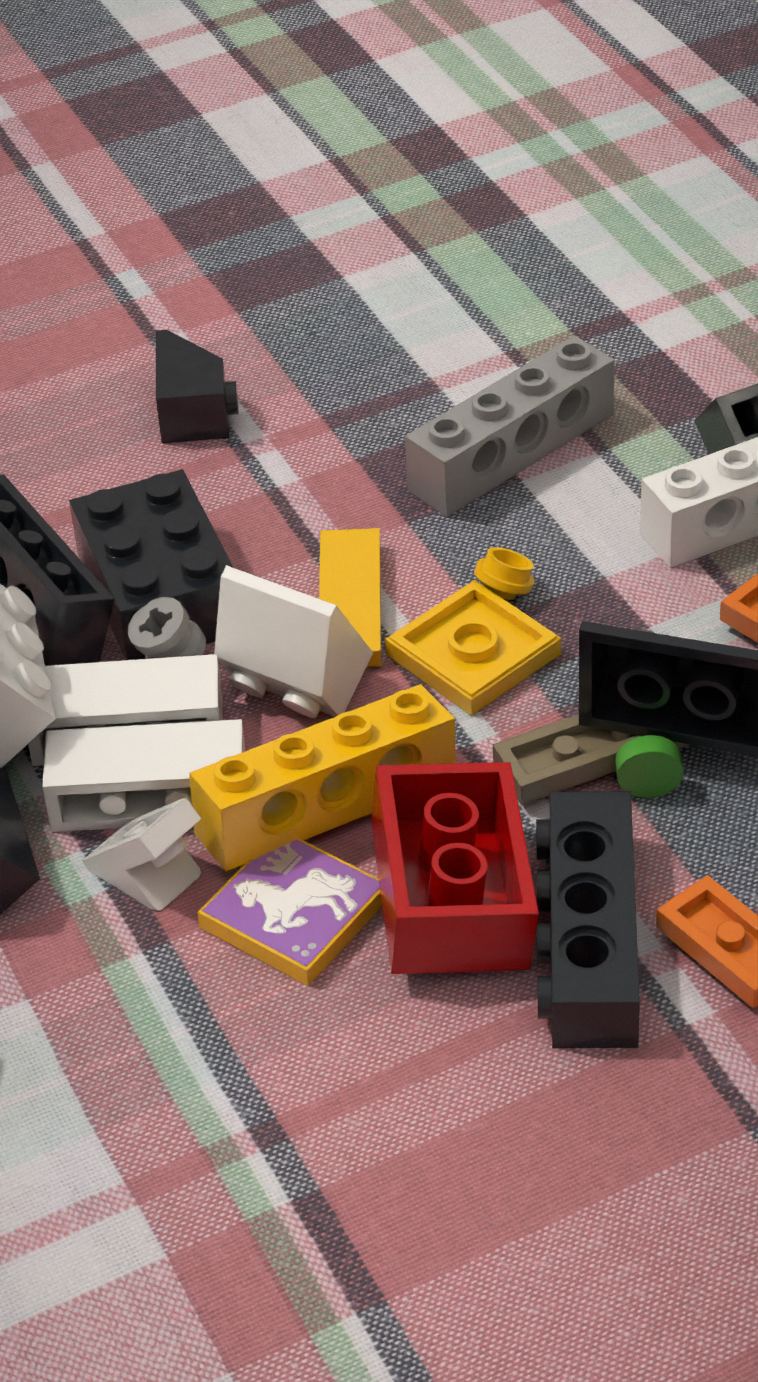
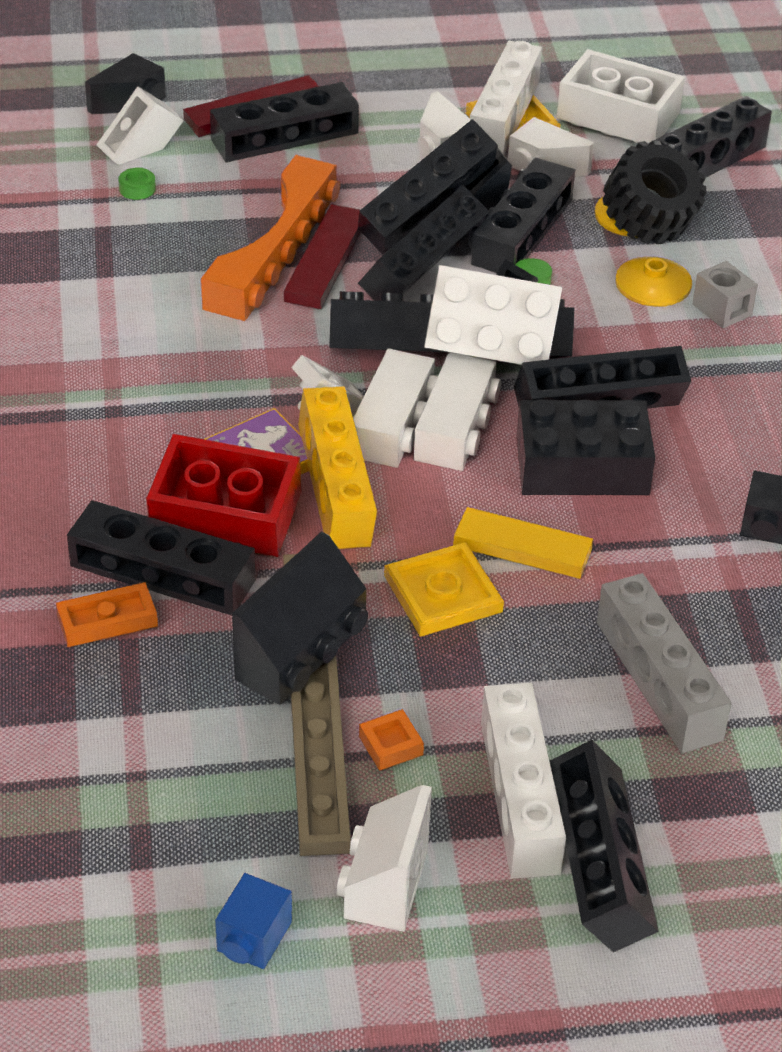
camera: 105 degrees right, 0 degrees up
(165, 630) = (500, 428): light grey wheel -> none
(287, 645) = (457, 470): white slope -> none
(505, 572) = (499, 616): yellow plate -> none

